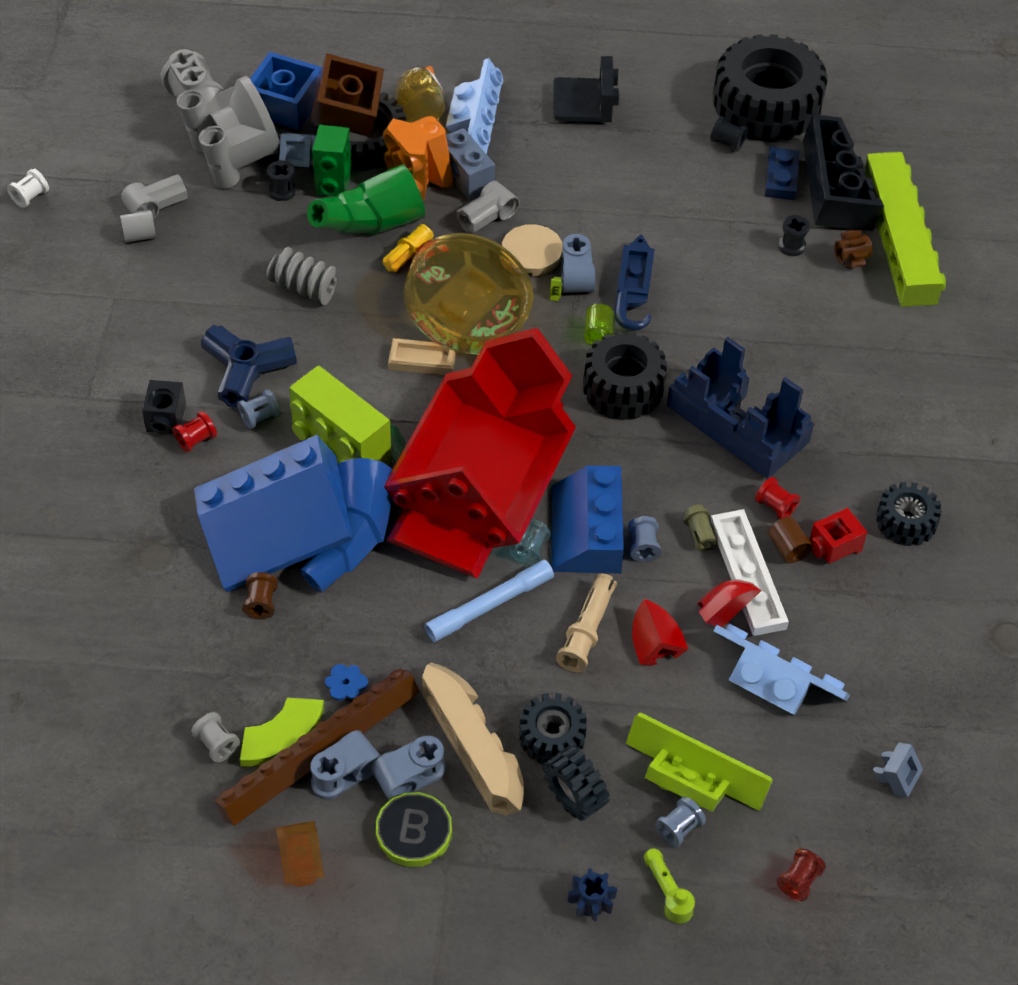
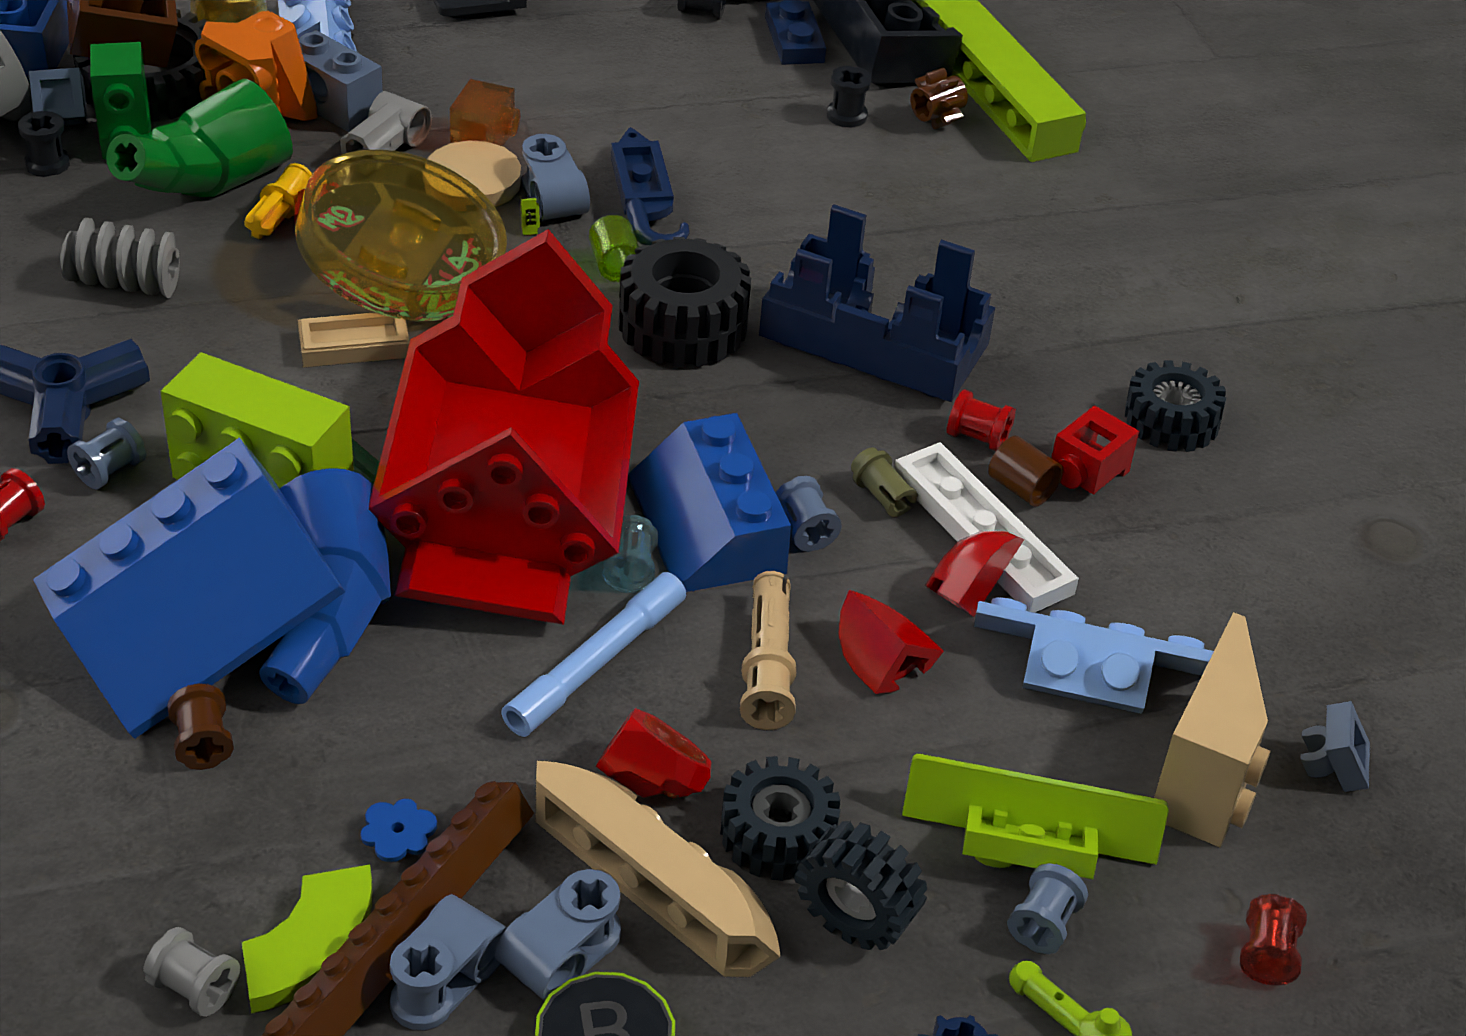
camera: 20 degrees left, 10 degrees down
(497, 676) = (654, 758): none -> red rock
(551, 208) = (484, 113): none -> clear orange brick
(809, 753) = (1217, 743): none -> tan slope

